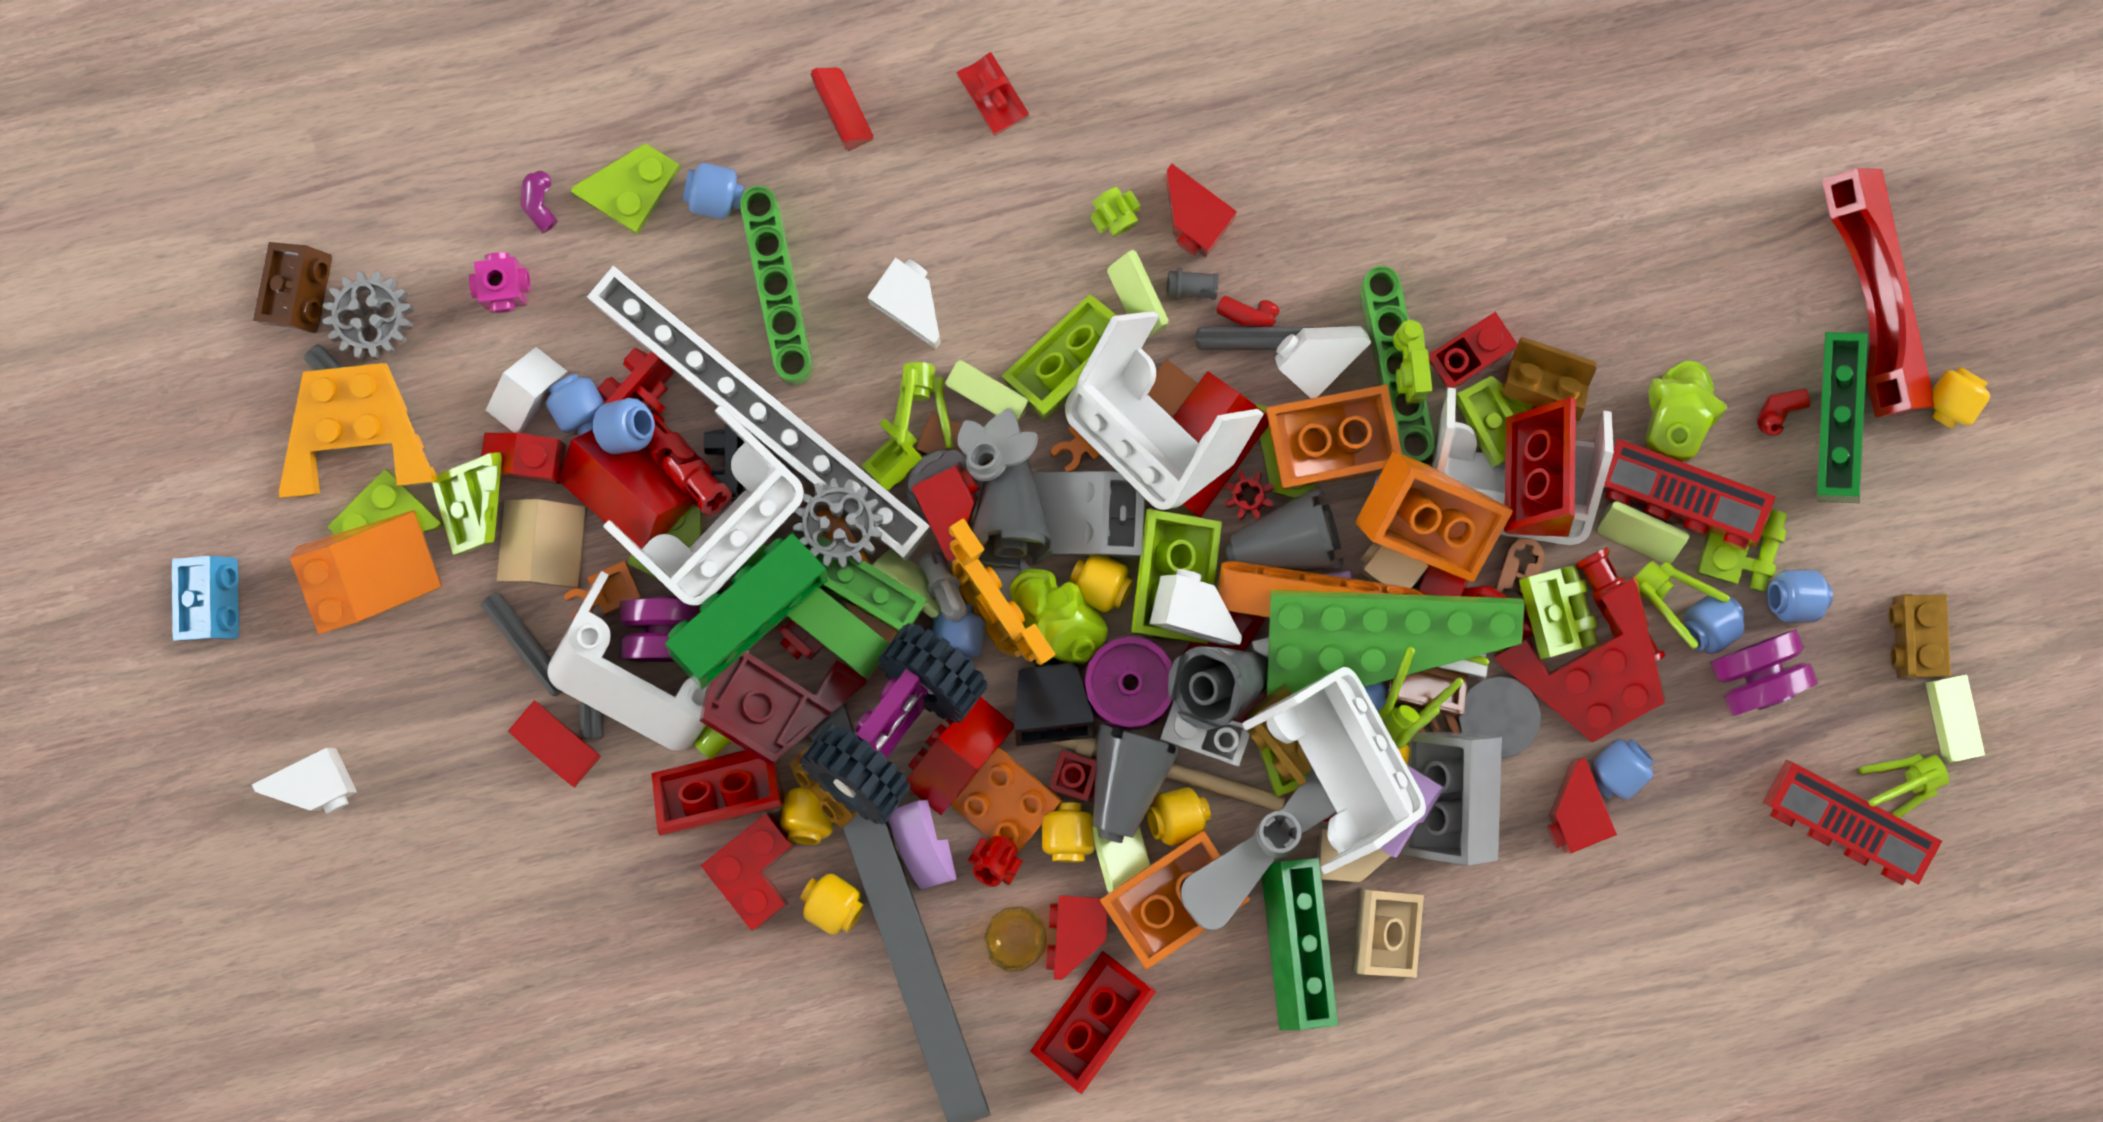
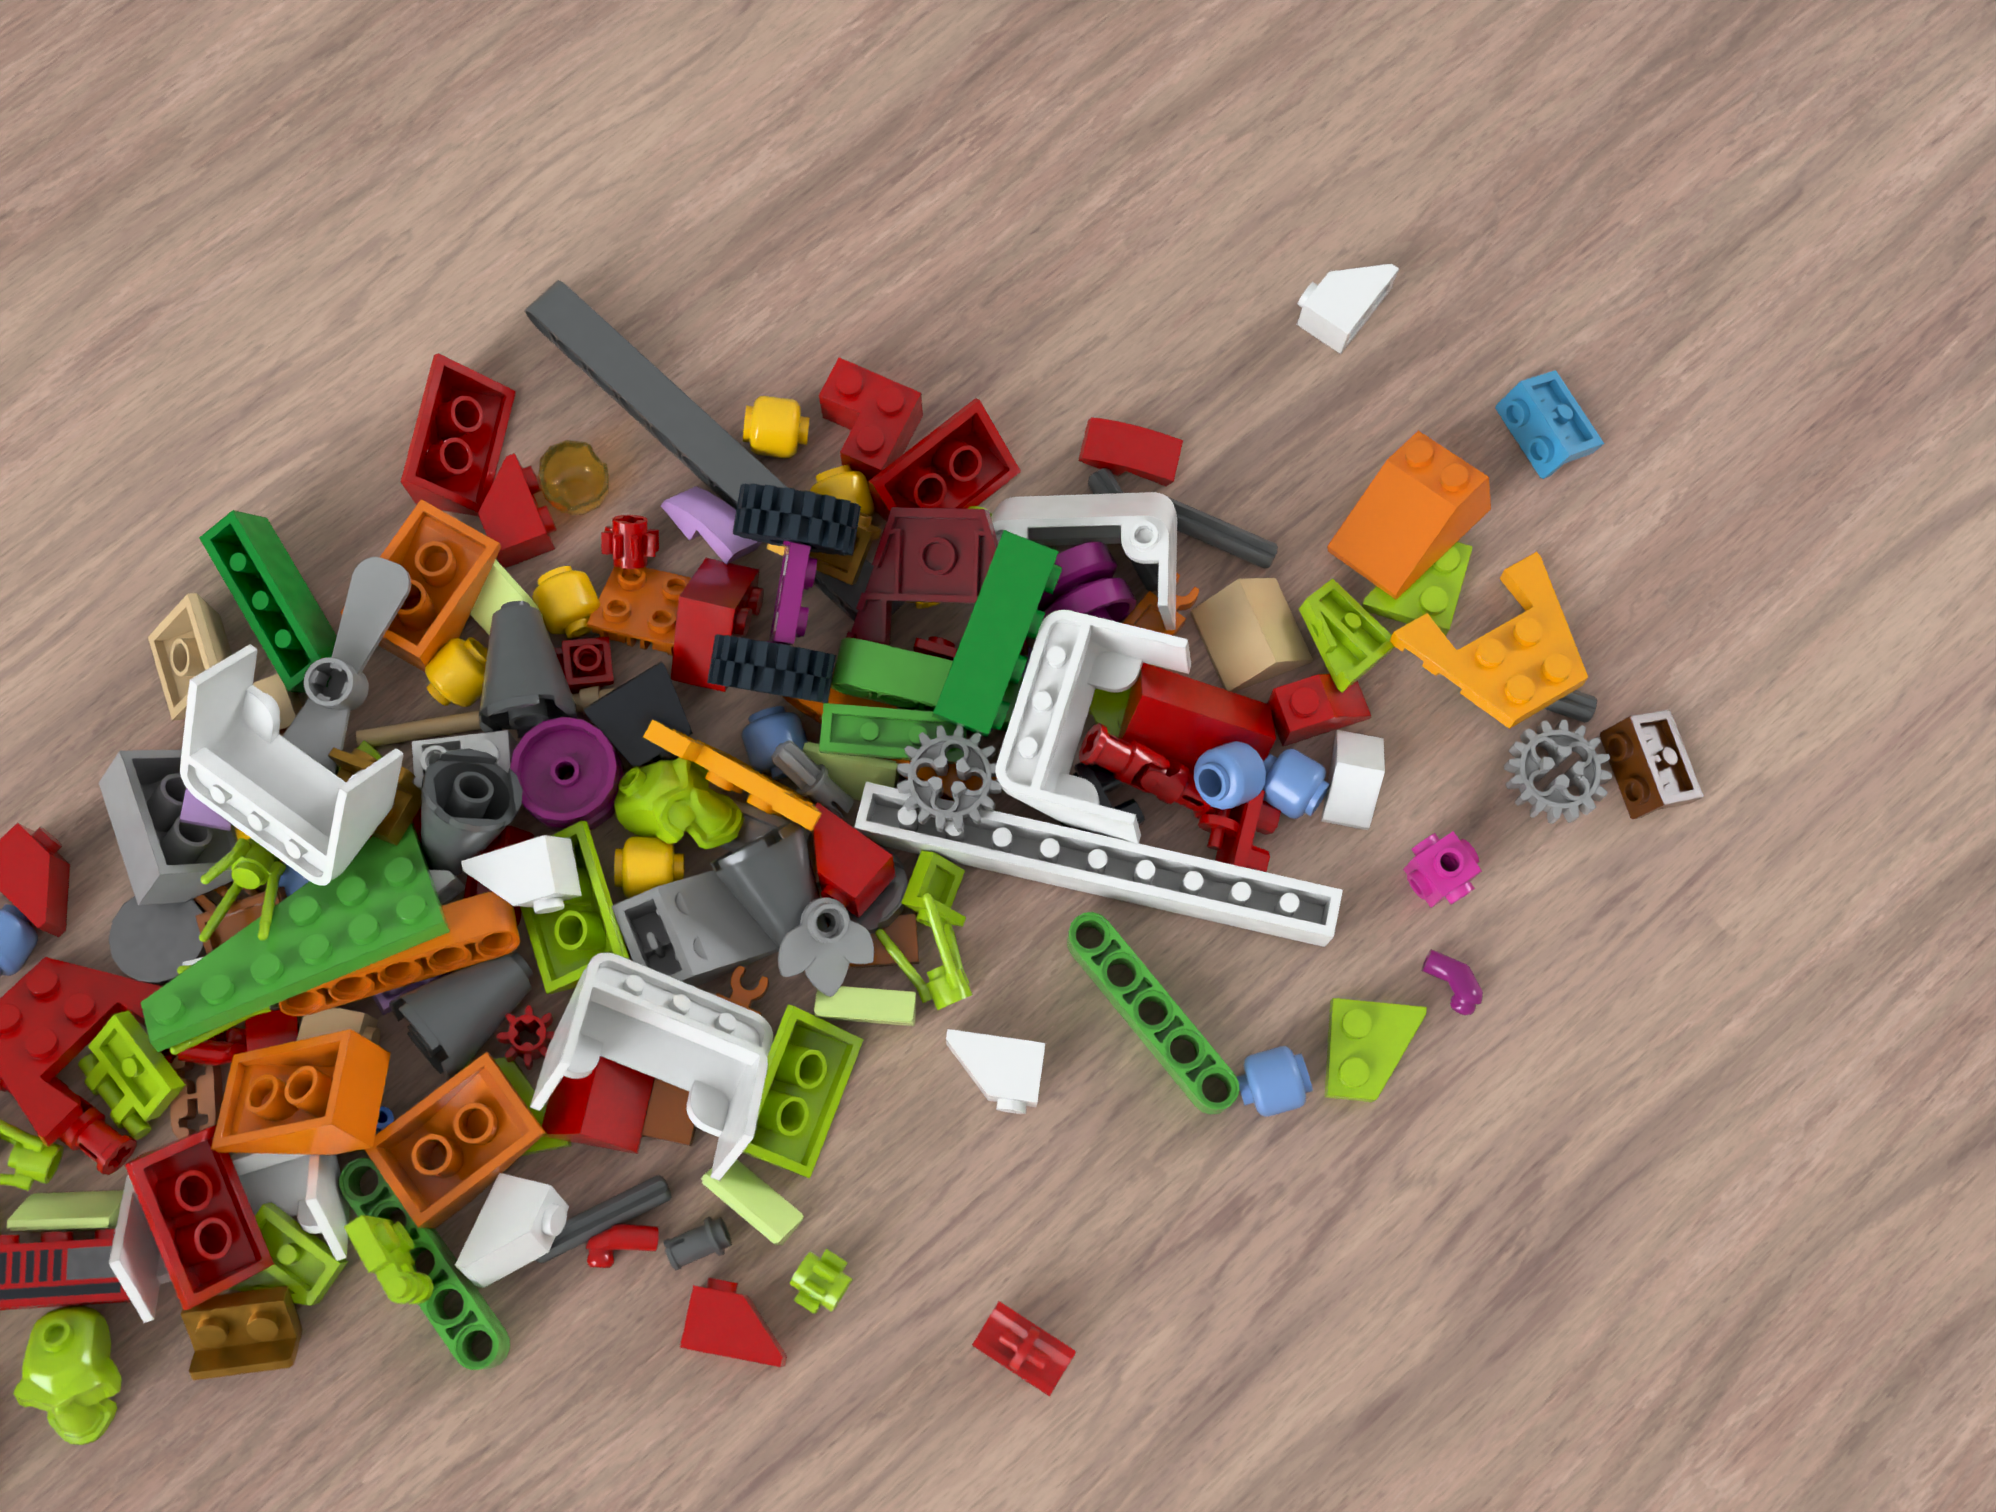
camera: 150 degrees right, 10 degrees down
(842, 107) = (1186, 1251): red slope -> none
(1472, 351) = (340, 1321): red slope -> none

